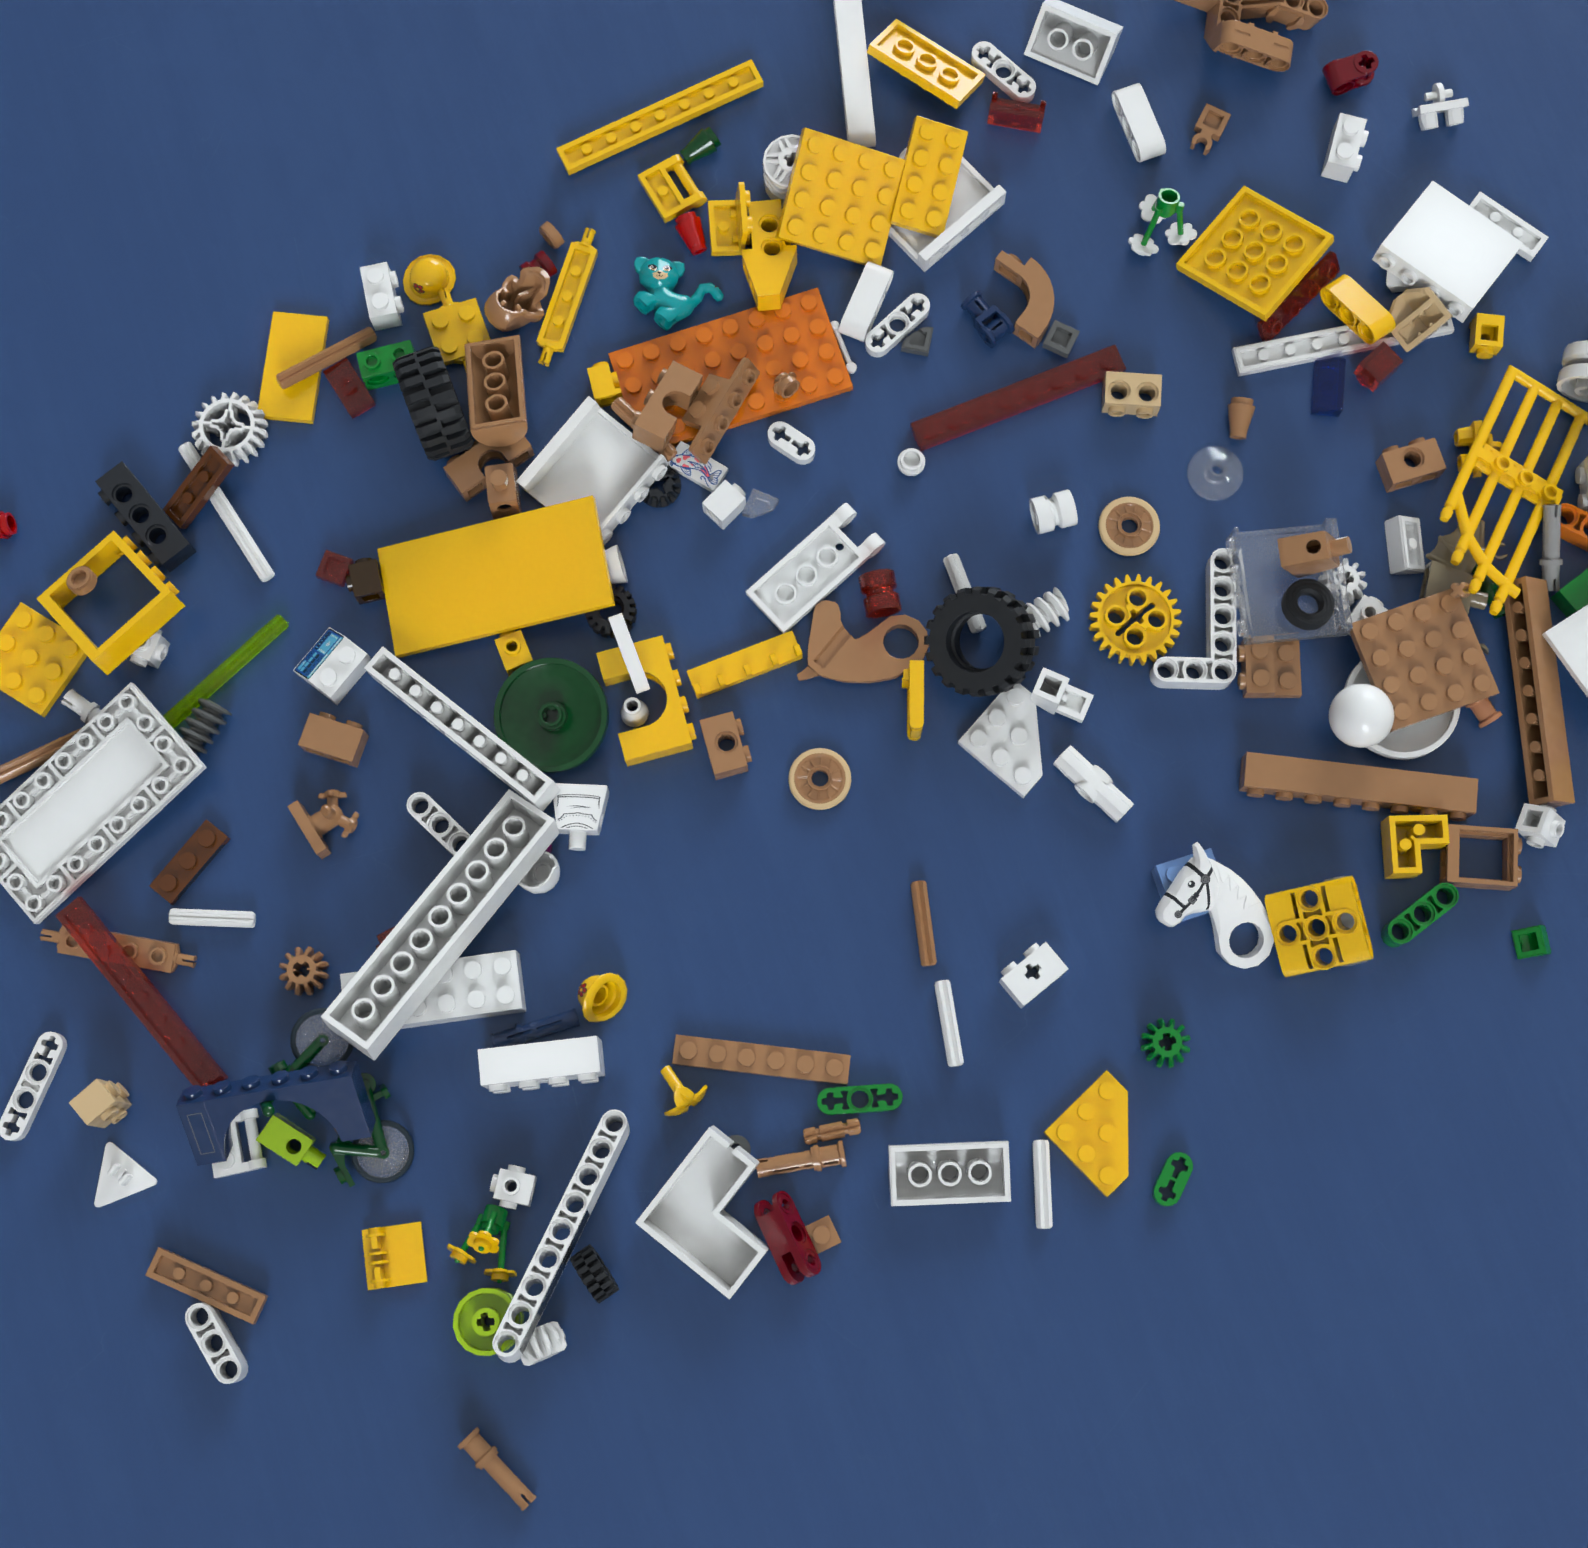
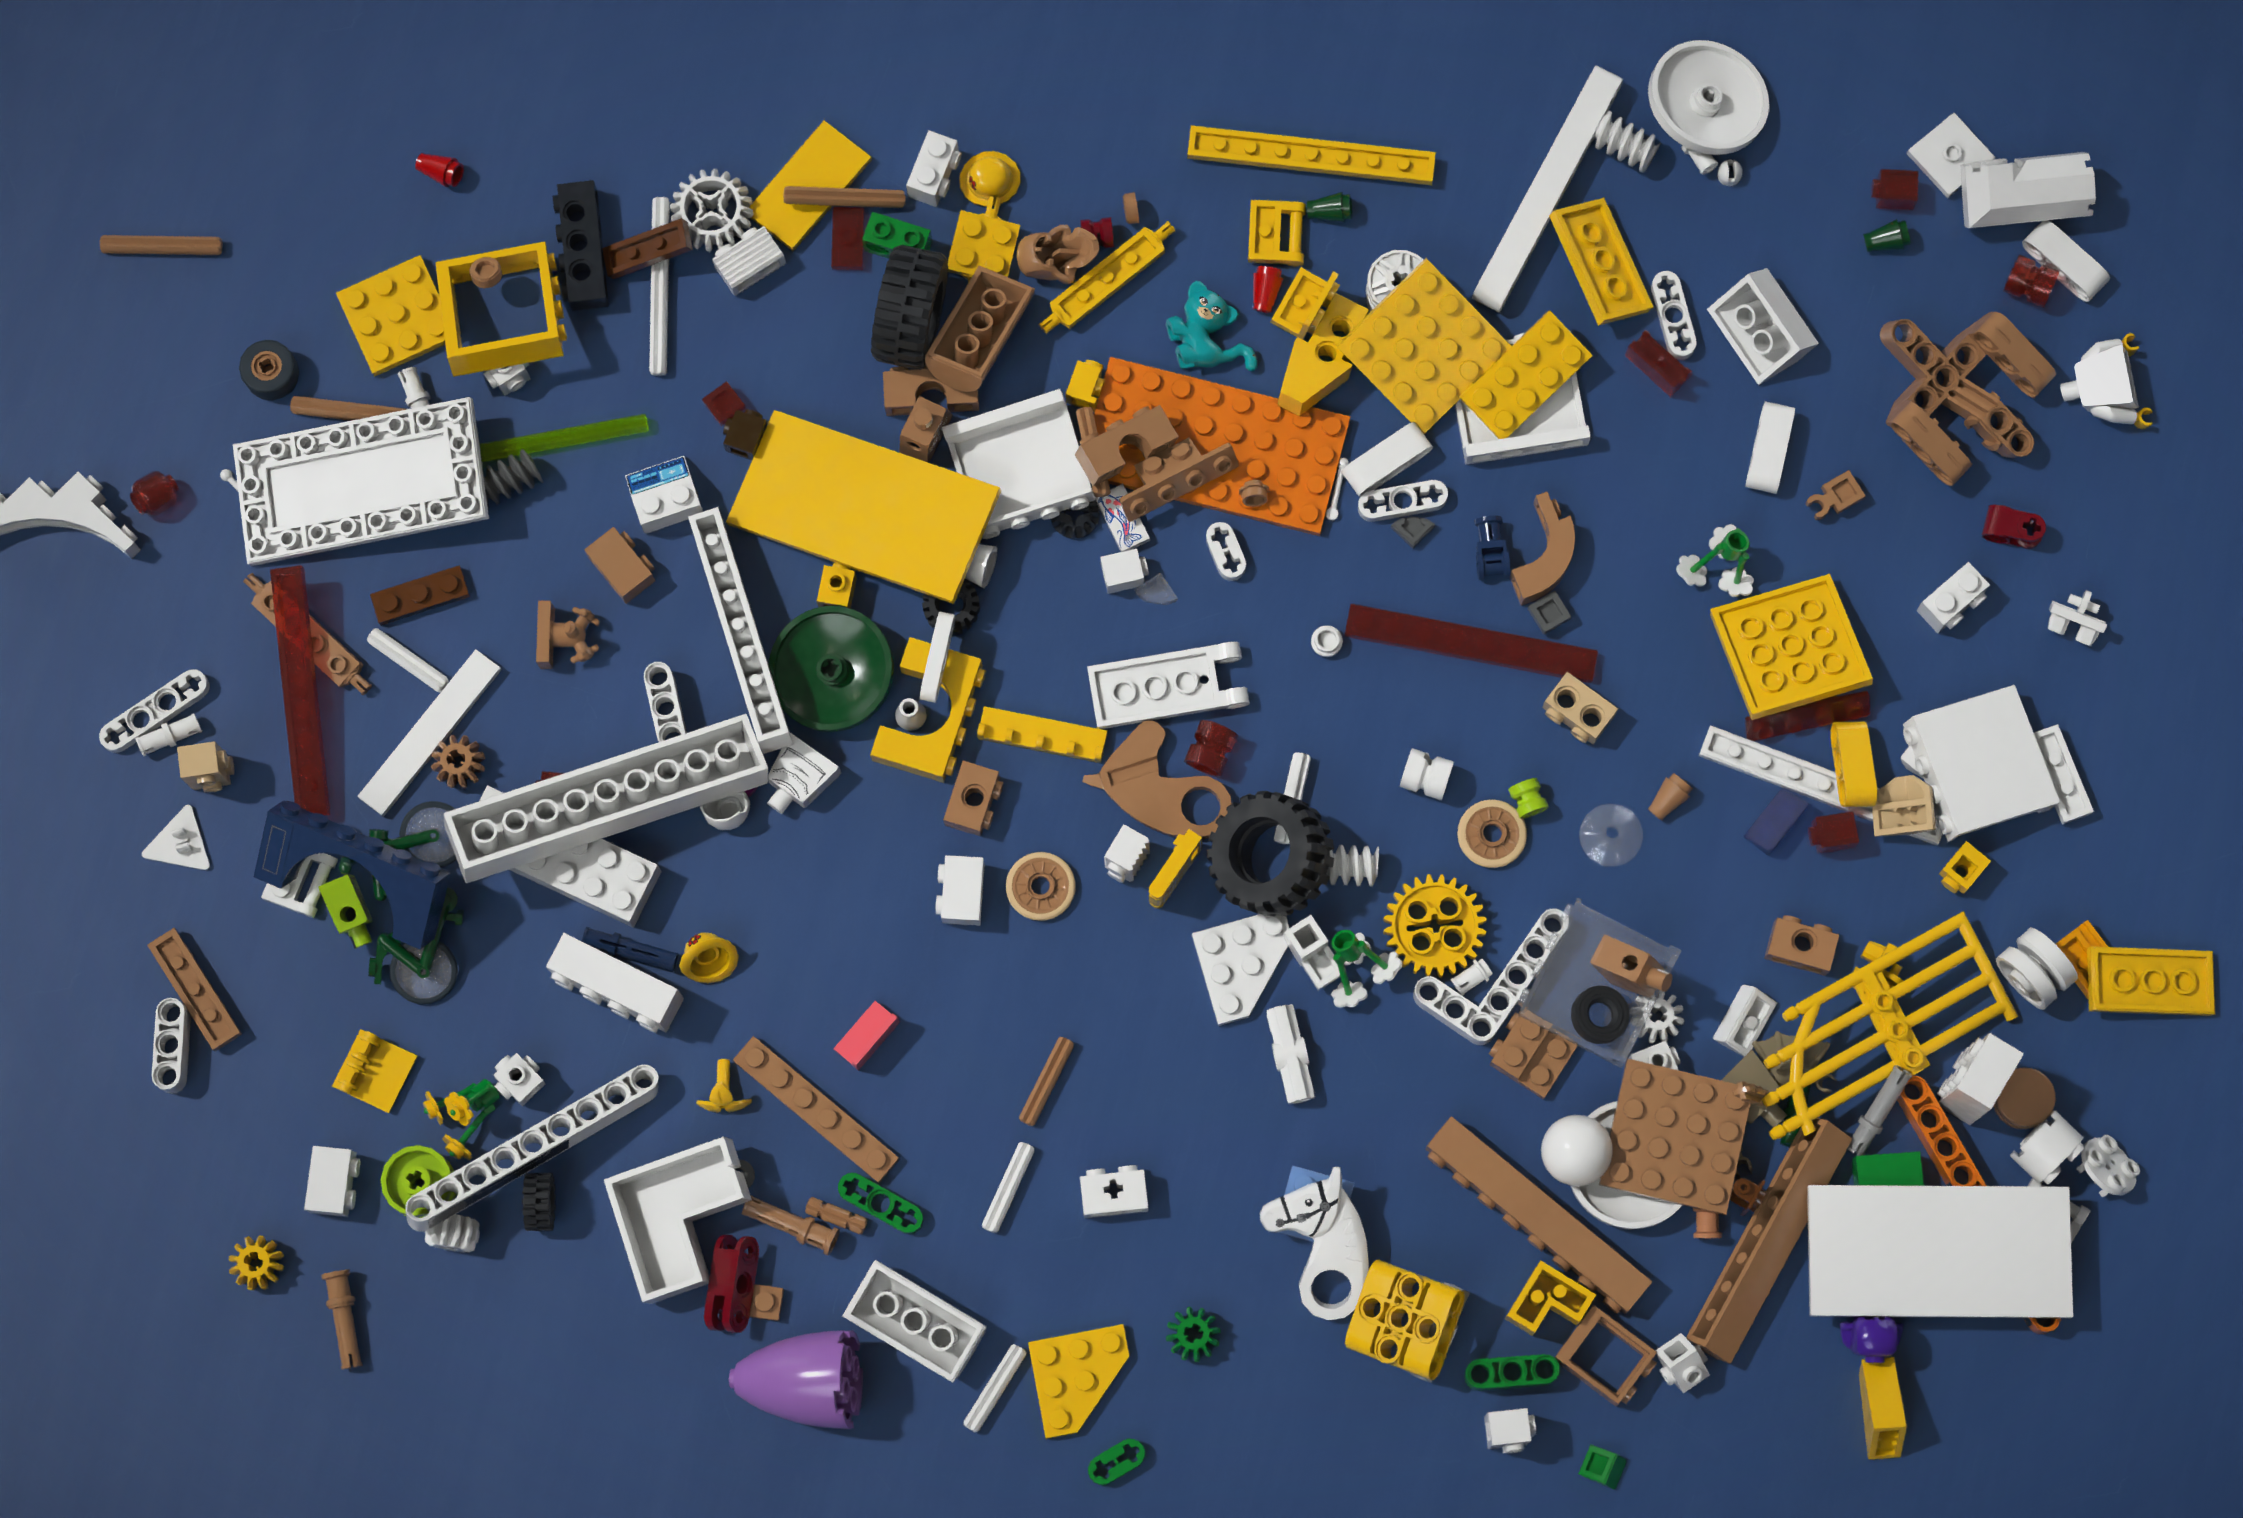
camera: 35 degrees right, 0 degrees up
(56, 1097) = (168, 734): none -> white pin
(265, 961) = (429, 730): none -> white tile
(283, 449) = (748, 260): none -> white brick
(395, 1482) = (264, 1253): none -> yellow gear
(417, 1366) = (331, 1181): none -> white brick
(762, 977) = (866, 1035): none -> coral panel
(763, 819) = (962, 890): none -> white brick
(872, 711) = (1126, 854): none -> white brick
(894, 1276) = (804, 1379): none -> medium lavender cylinder
(1087, 675) = (1352, 948): none -> plant
(1139, 482) = (1528, 798): none -> lime wheel
(1187, 639) = (1472, 976): none -> white pin
(1451, 959) = (1509, 1429): none -> white brick
(1506, 668) = (1747, 1194): none -> reddish brown hinge

